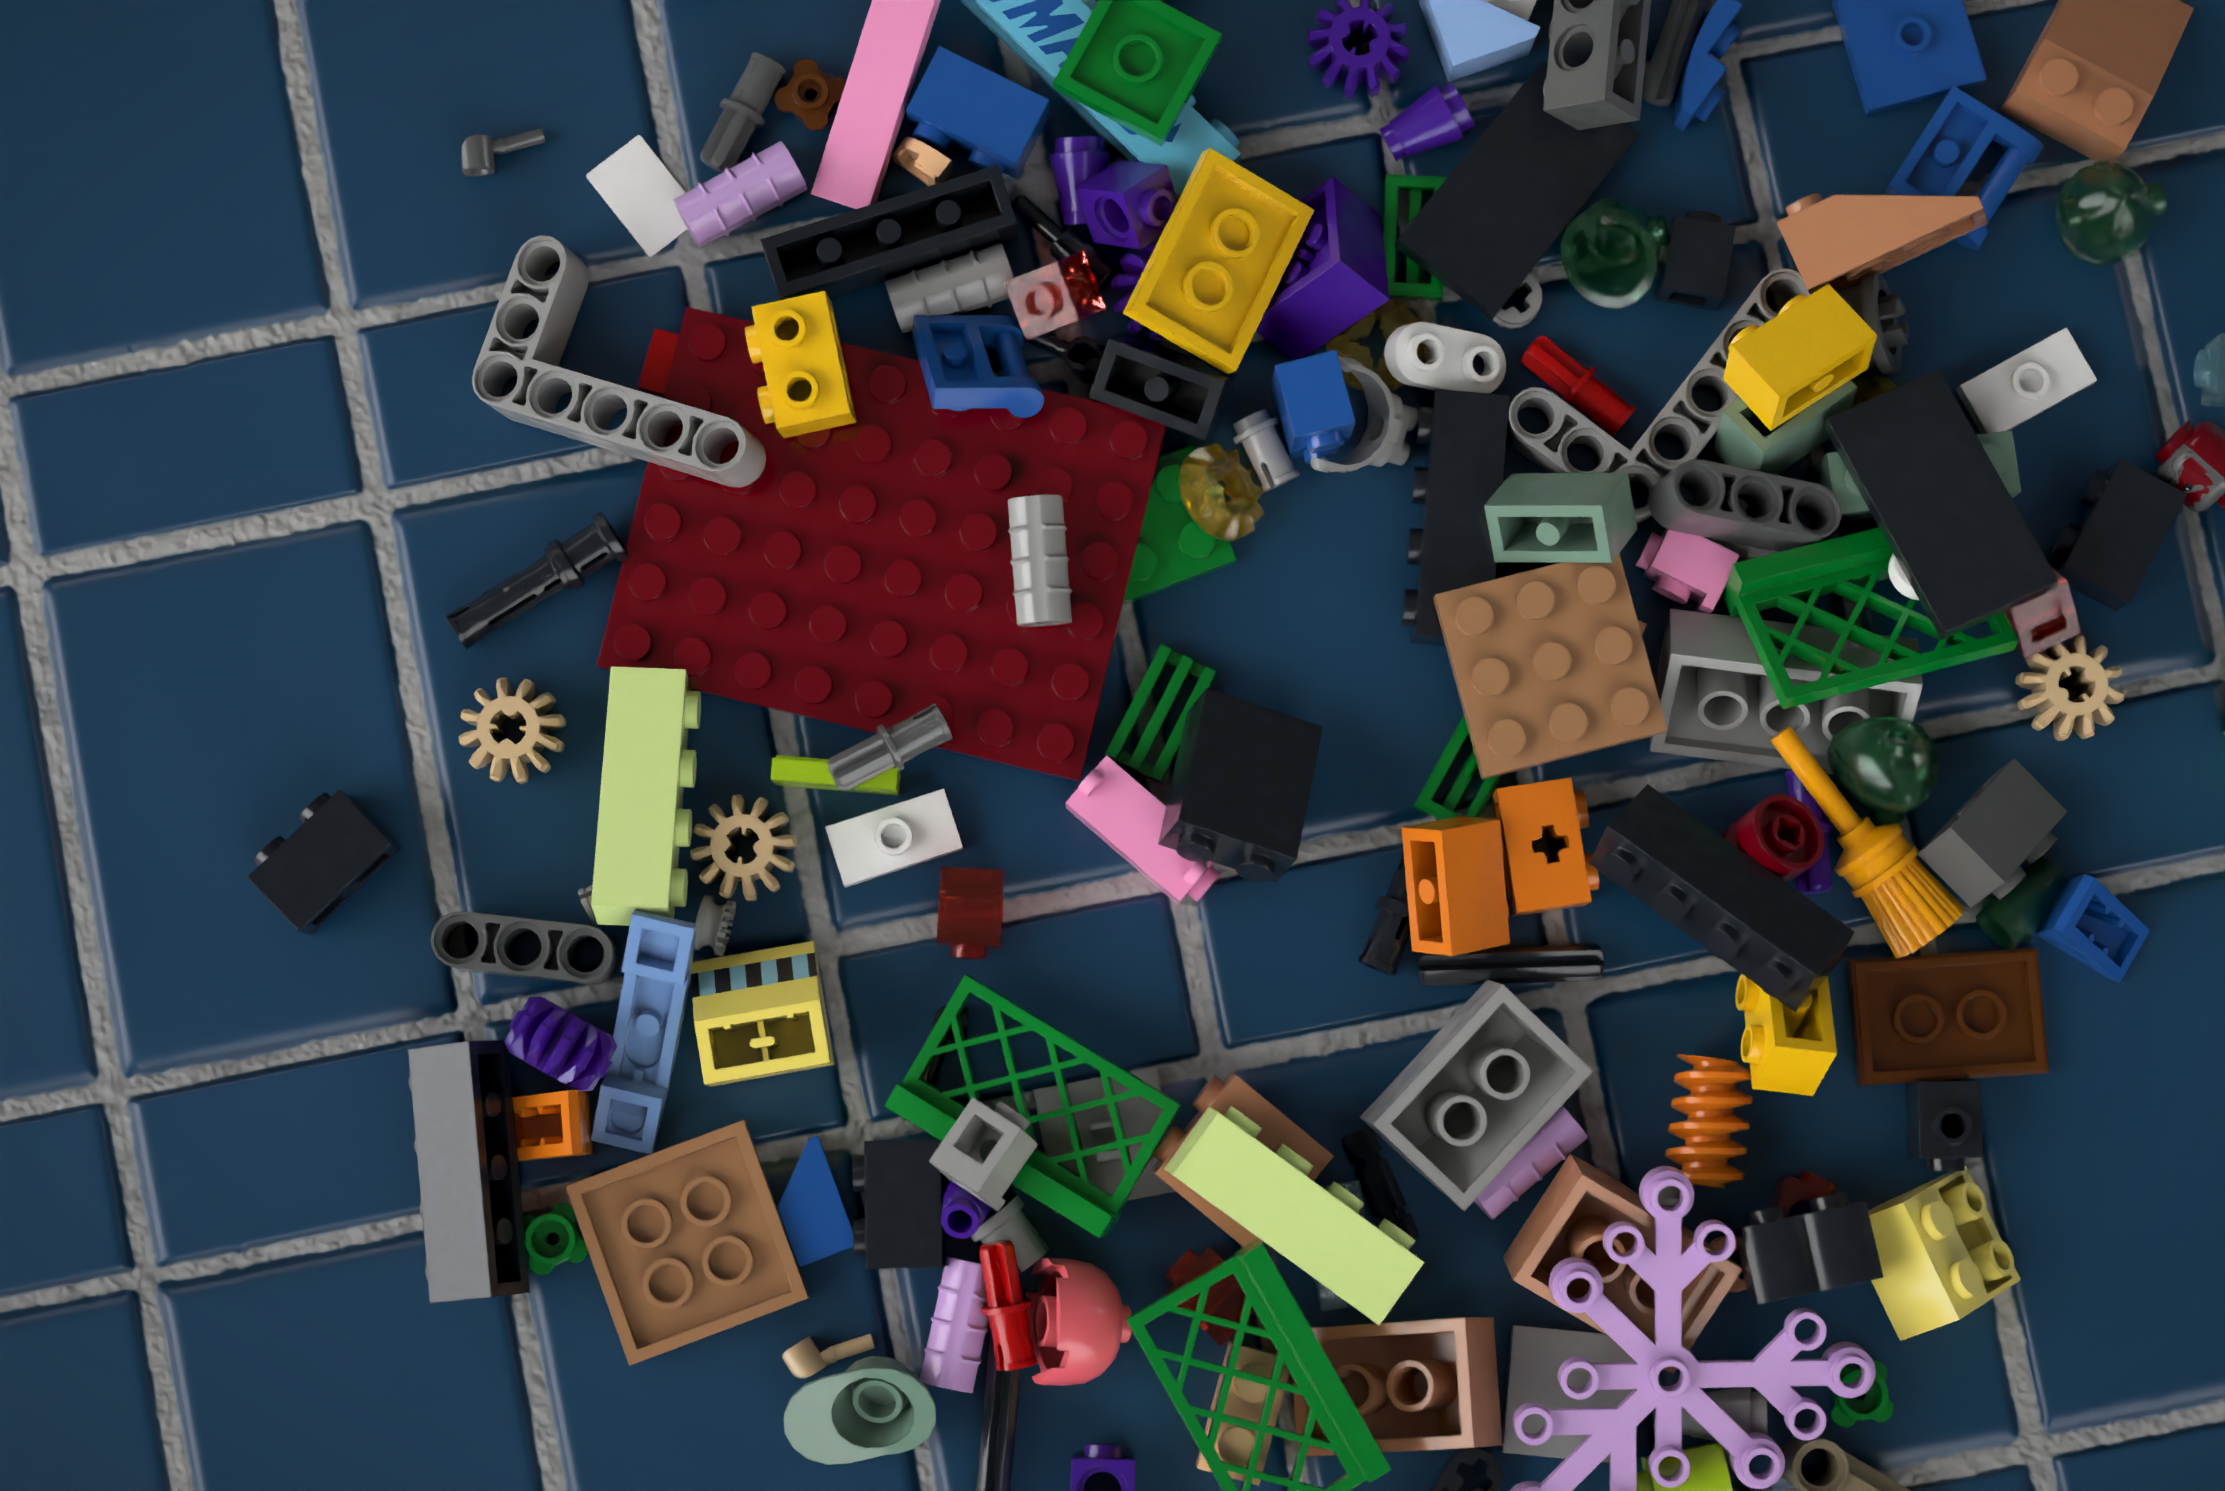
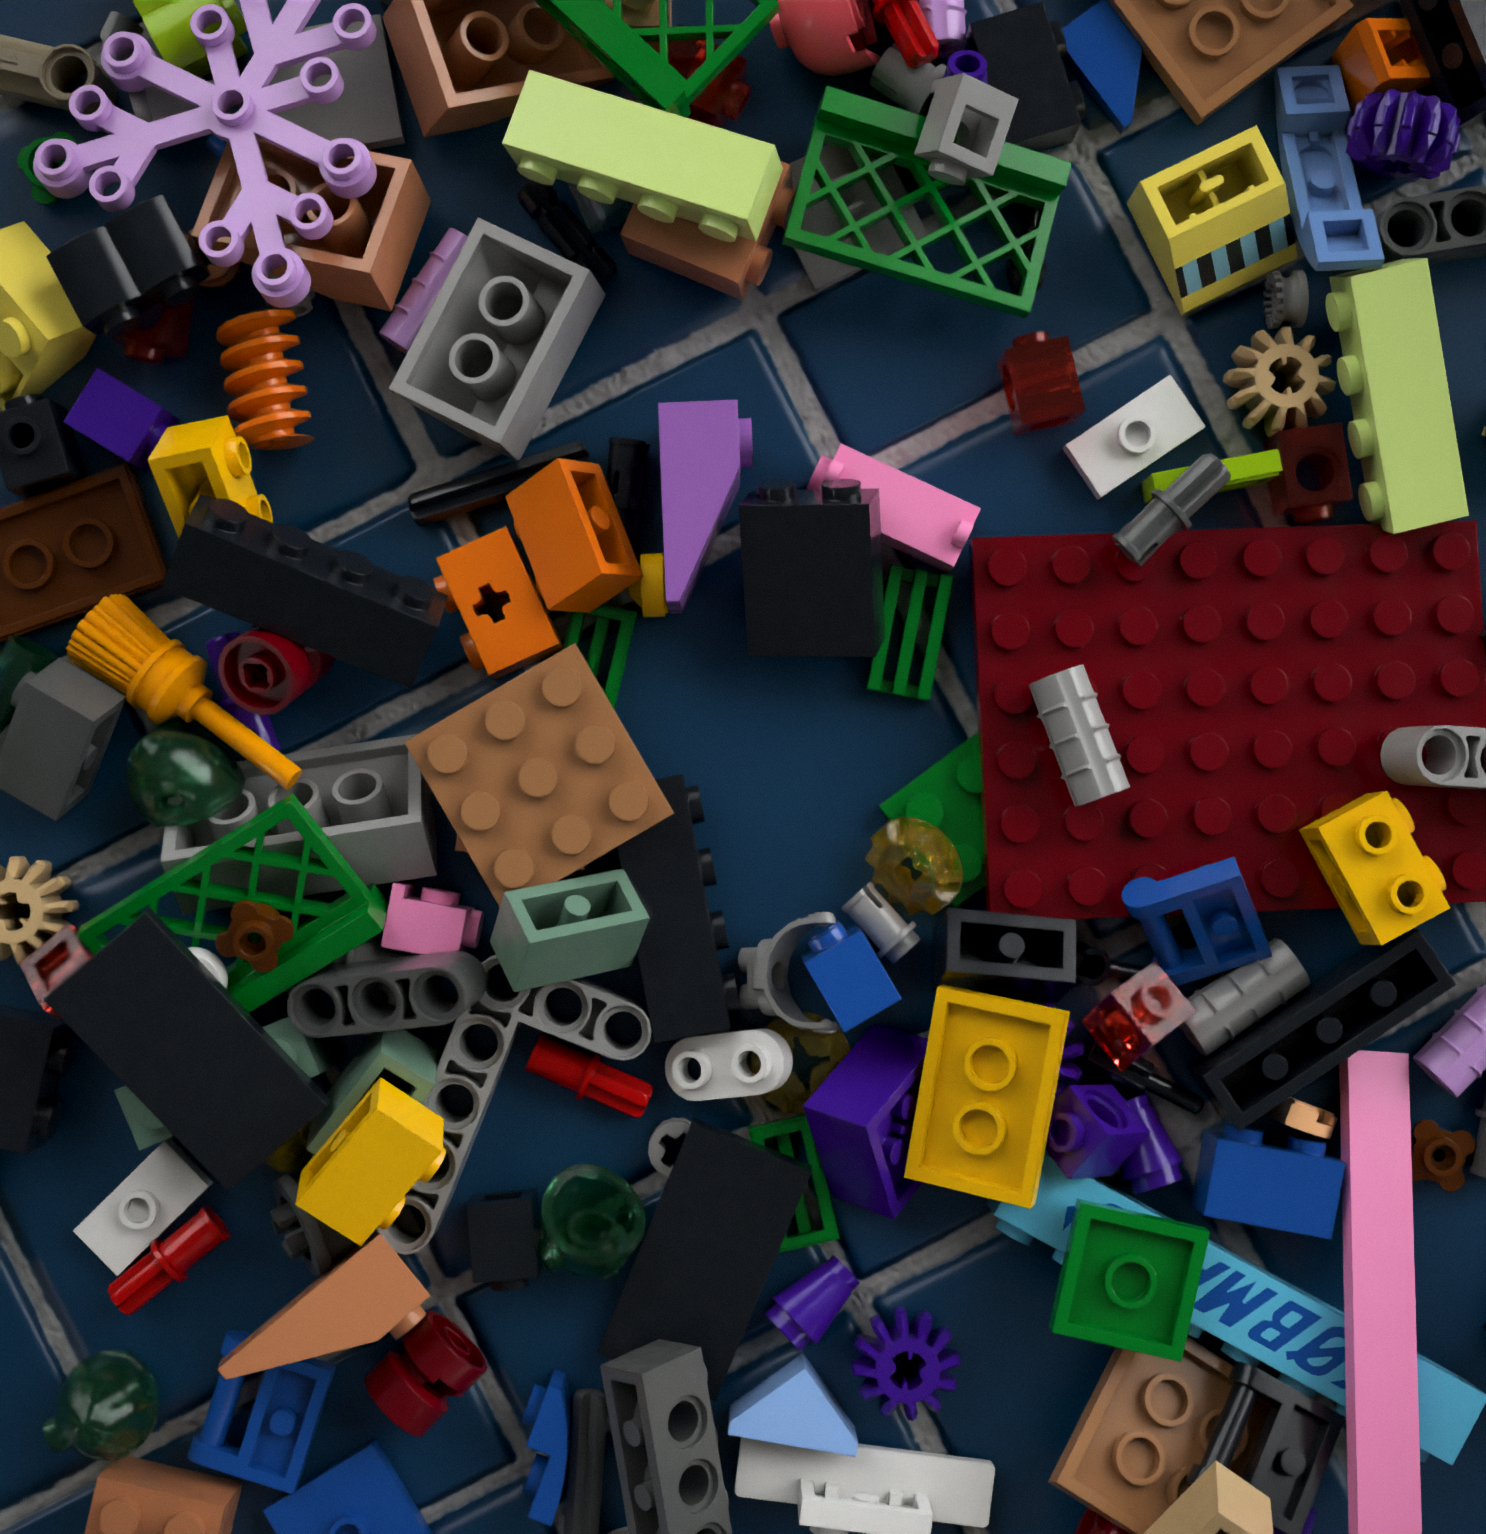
camera: 165 degrees right, 5 degrees up
(747, 781) = (1324, 449): none -> clear red brick
(1322, 908) = (700, 475): none -> medium lavender slope
(1392, 816) = (650, 589): none -> yellow tile
(1808, 156) = (415, 1382): none -> dark red wheel
(1848, 605) = (260, 919): none -> reddish brown plate
(1854, 1122) = (119, 418): none -> dark purple brick
(2015, 327) = (168, 1261): none -> red axle

